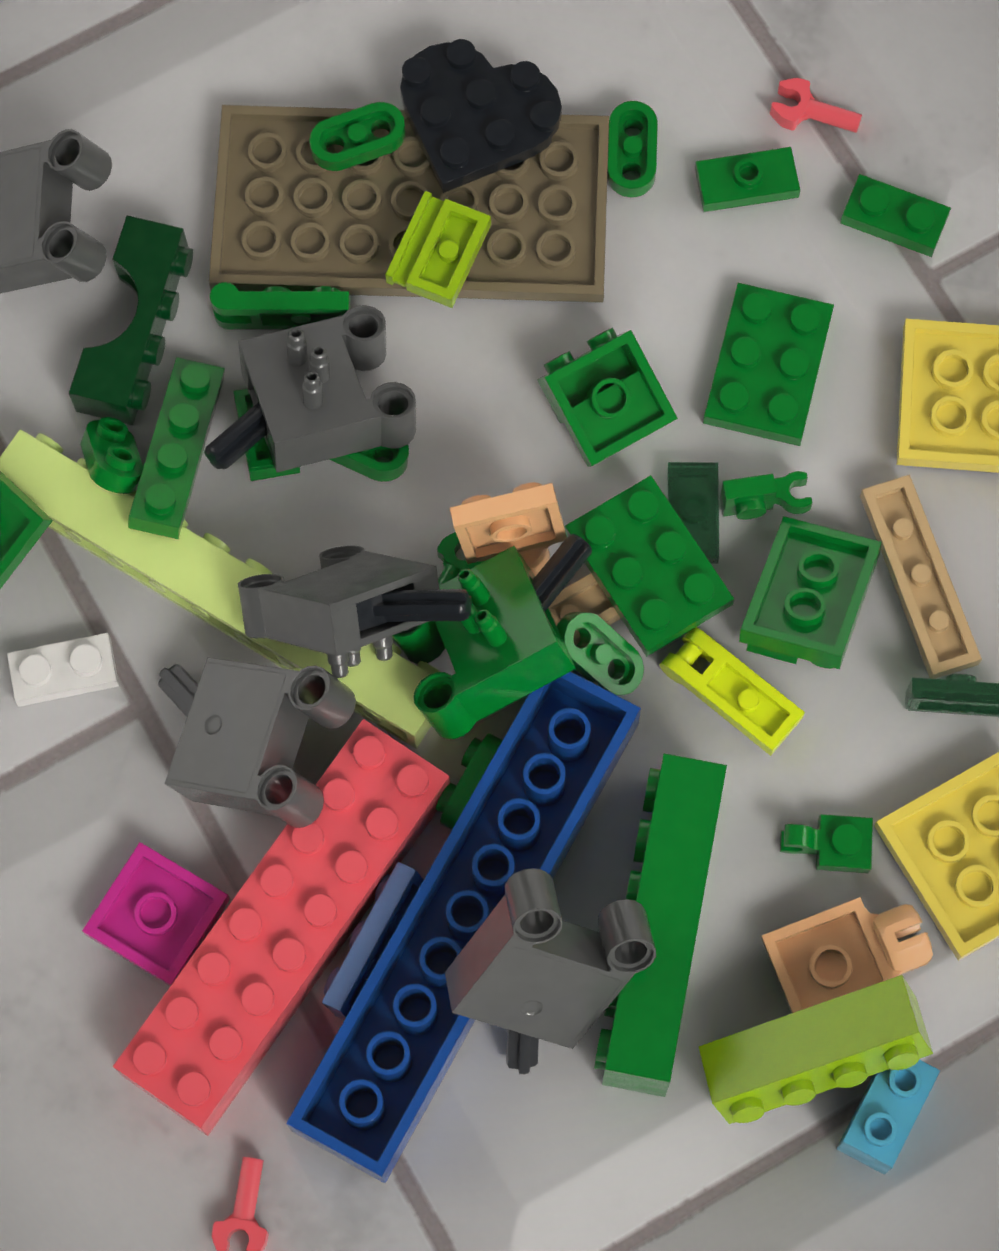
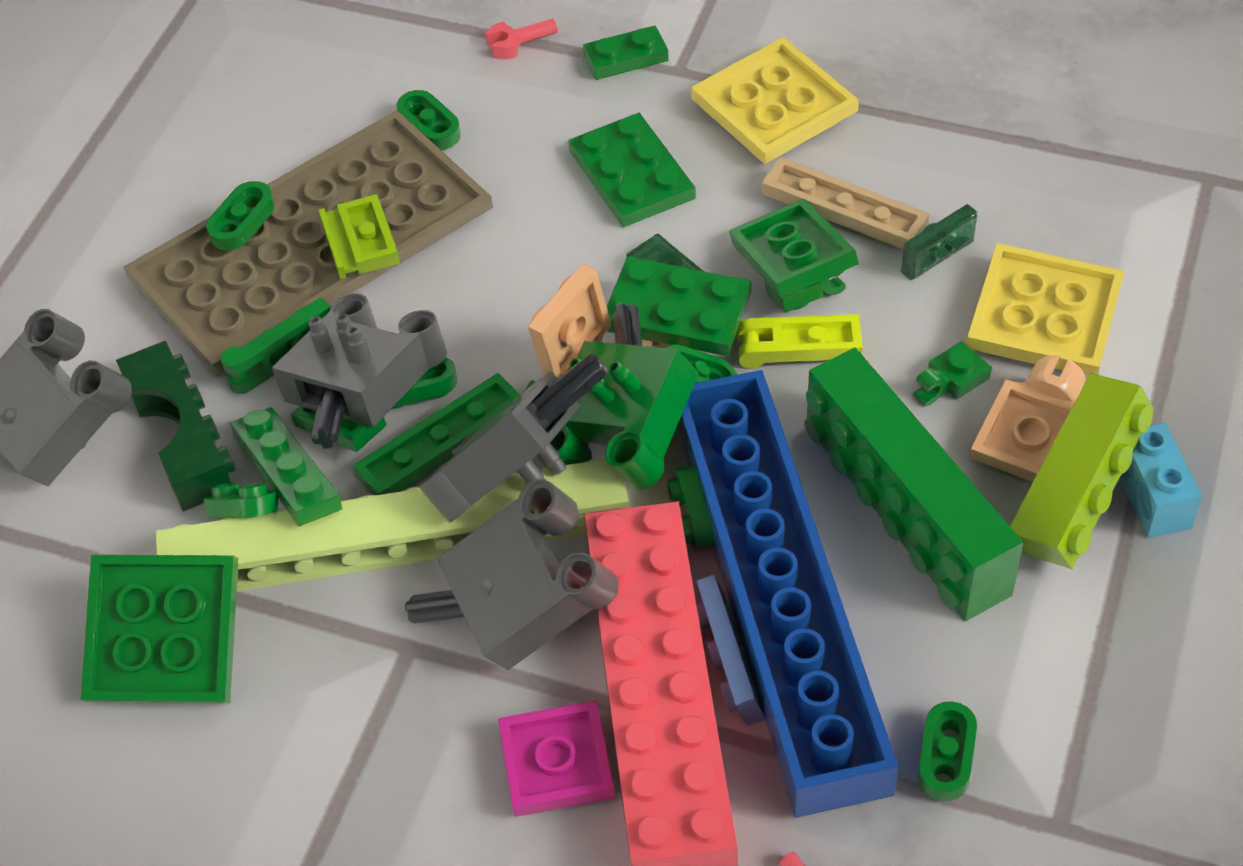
camera: 40 degrees left, 20 degrees down
(62, 669) = (328, 665): white plate -> none
(333, 522) = (433, 439): none -> green plate
(460, 1188) = (947, 754): none -> green plate
(474, 114) = (308, 161): black plate -> none
(544, 973) = (876, 543): dark grey piece -> none
(606, 395) = (547, 241): green plate -> none
(747, 179) = (516, 92): green plate -> none
(754, 495) = (699, 229): green plate -> none

